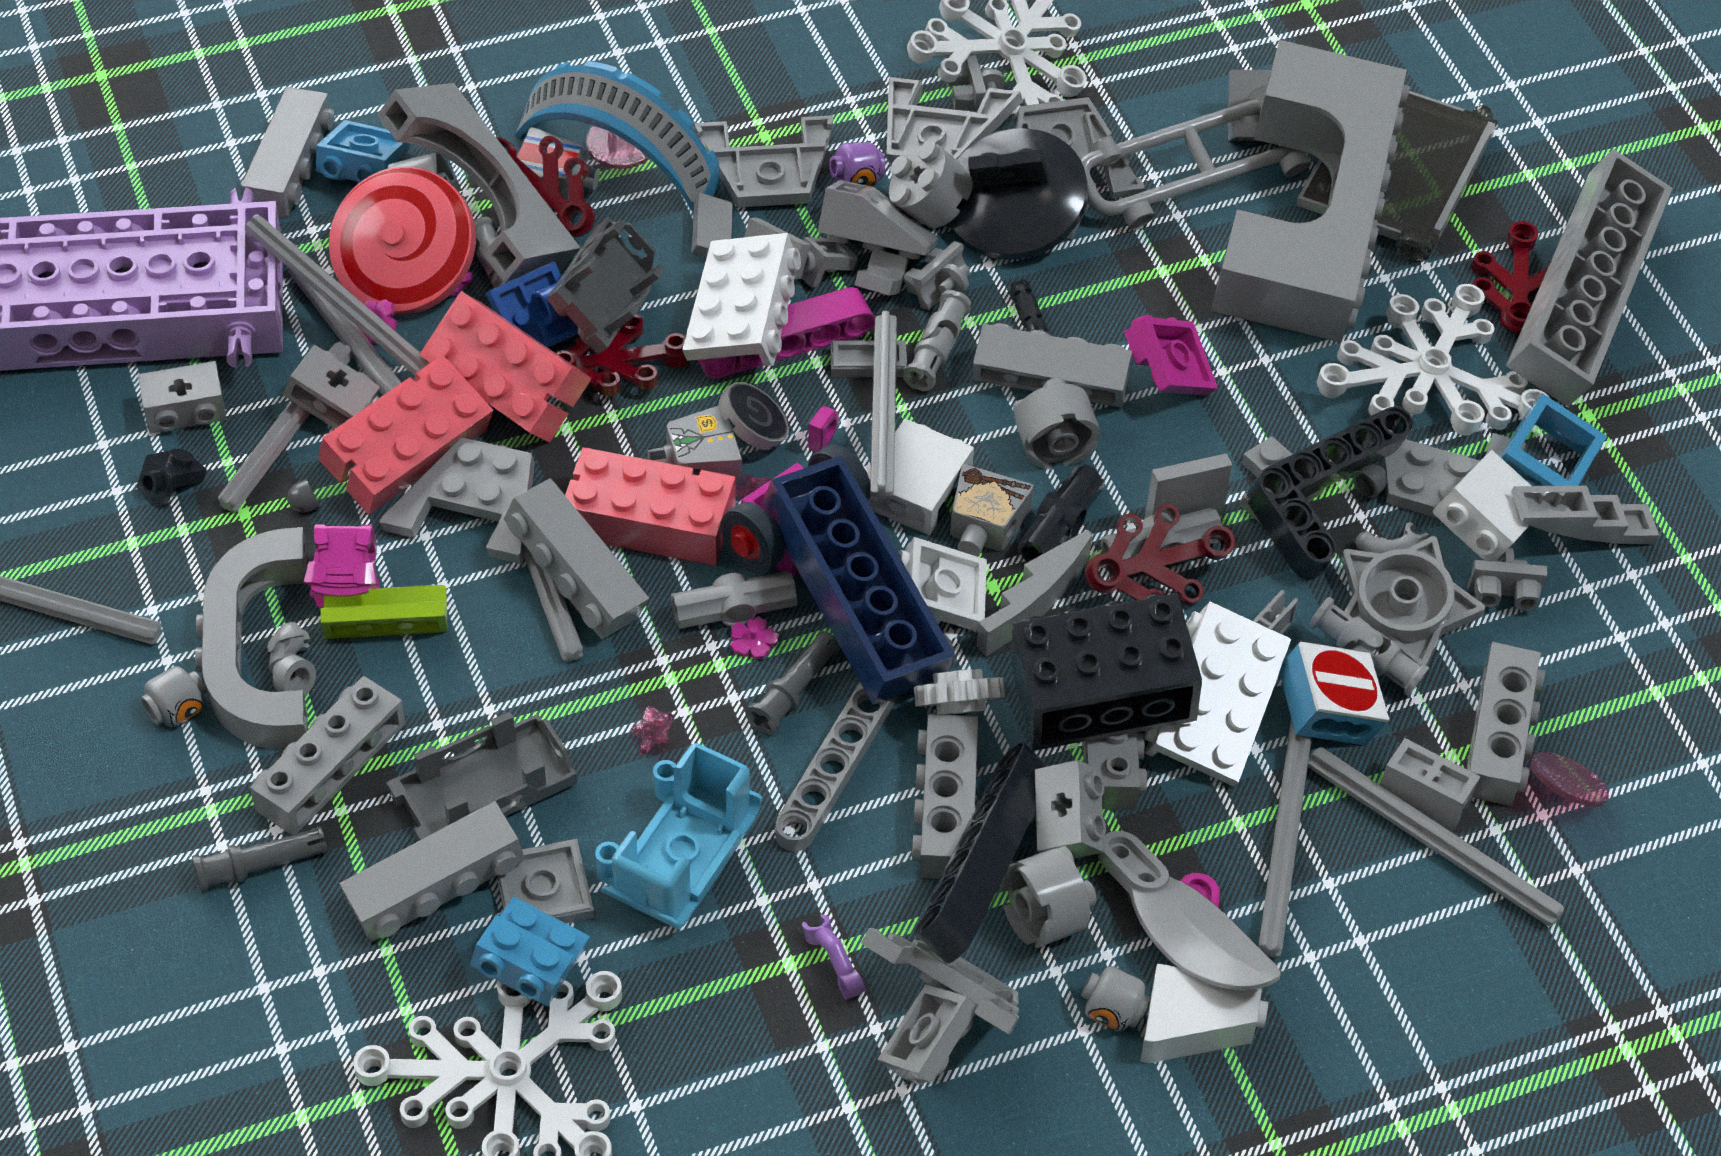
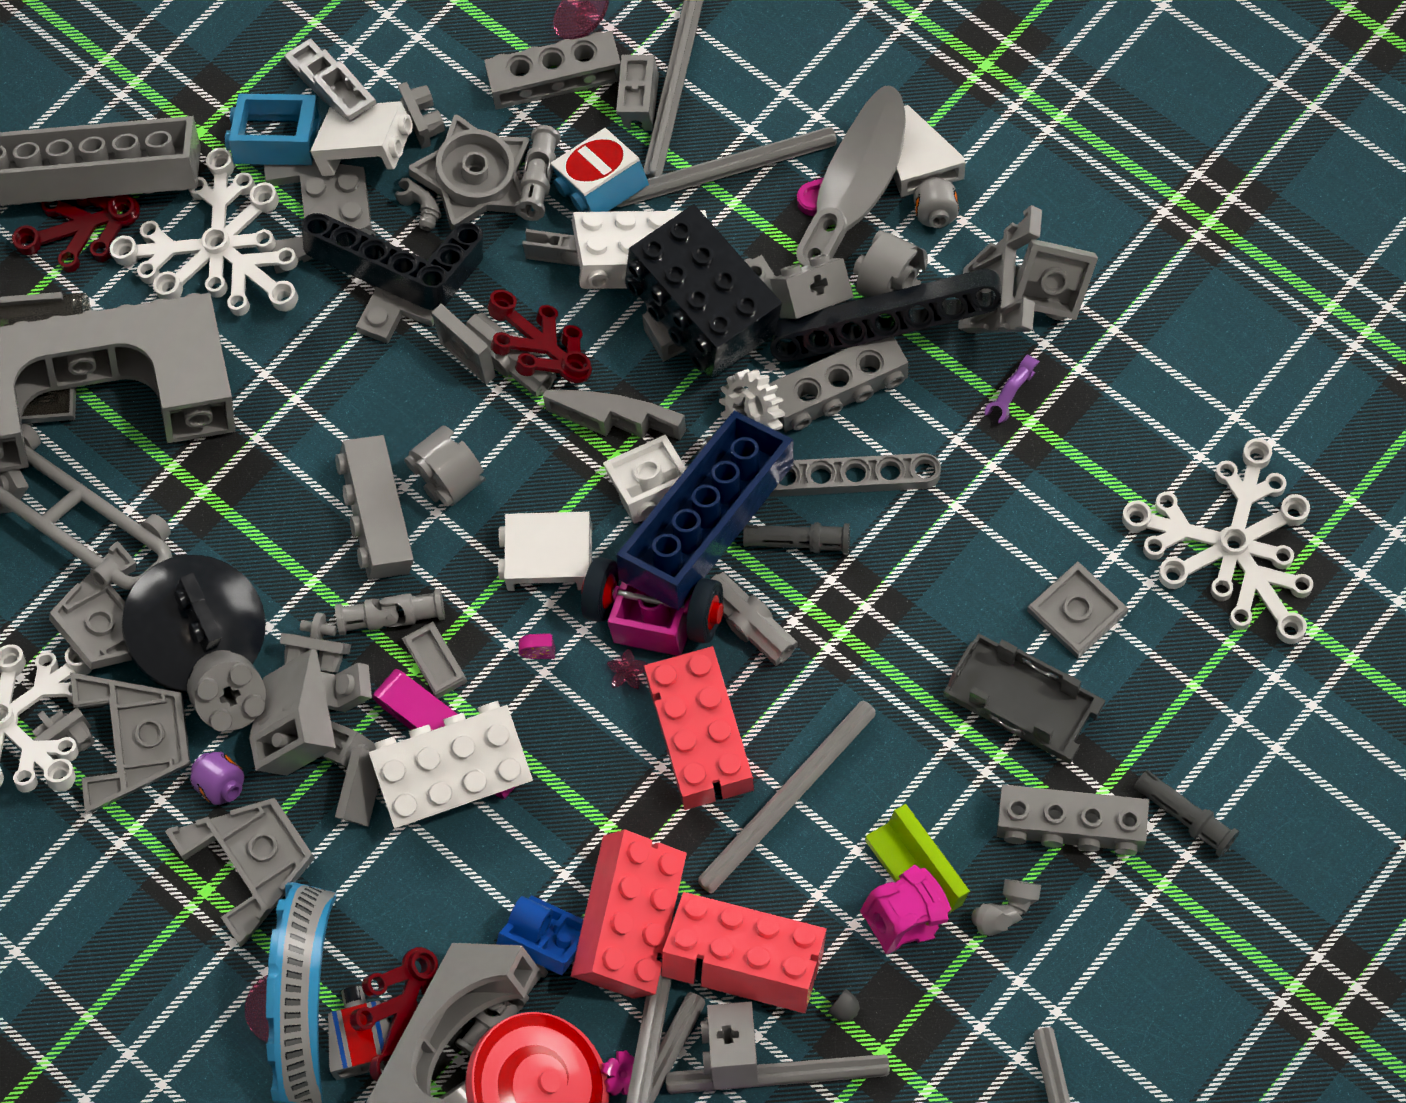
camera: 110 degrees left, 15 degrees up
(173, 696) = (1094, 969): light grey head -> none
(247, 569) = (1010, 978): light grey arch -> none
(433, 872) = (1126, 675): light grey brick -> none
(473, 481) = (752, 865): light grey wing -> none
(529, 950) = (1147, 570): dark azure plate -> none
(575, 558) = (795, 737): light grey brick -> none
(605, 283) = (478, 891): dark grey piece -> none
(616, 359) = (553, 854): dark red plant -> none
(653, 728) = (902, 610): clear pink plant -> none
(688, 839) = (994, 528): medium azure container -> none
(701, 443) = (615, 725): light grey torso -> none
(710, 222) = (356, 860): light grey tile -> none
(753, 638) = (772, 592): dark pink plant -> none
(755, 415) = (561, 698): tile -> none
(883, 407) = (499, 599): light grey axle -> none
(988, 509) = (555, 483): light grey torso -> none
(1027, 306) = (312, 564): black axle -> none
(1062, 513) = (526, 433): black piece -> none
(1173, 354) = (320, 421): dark pink plate -> none

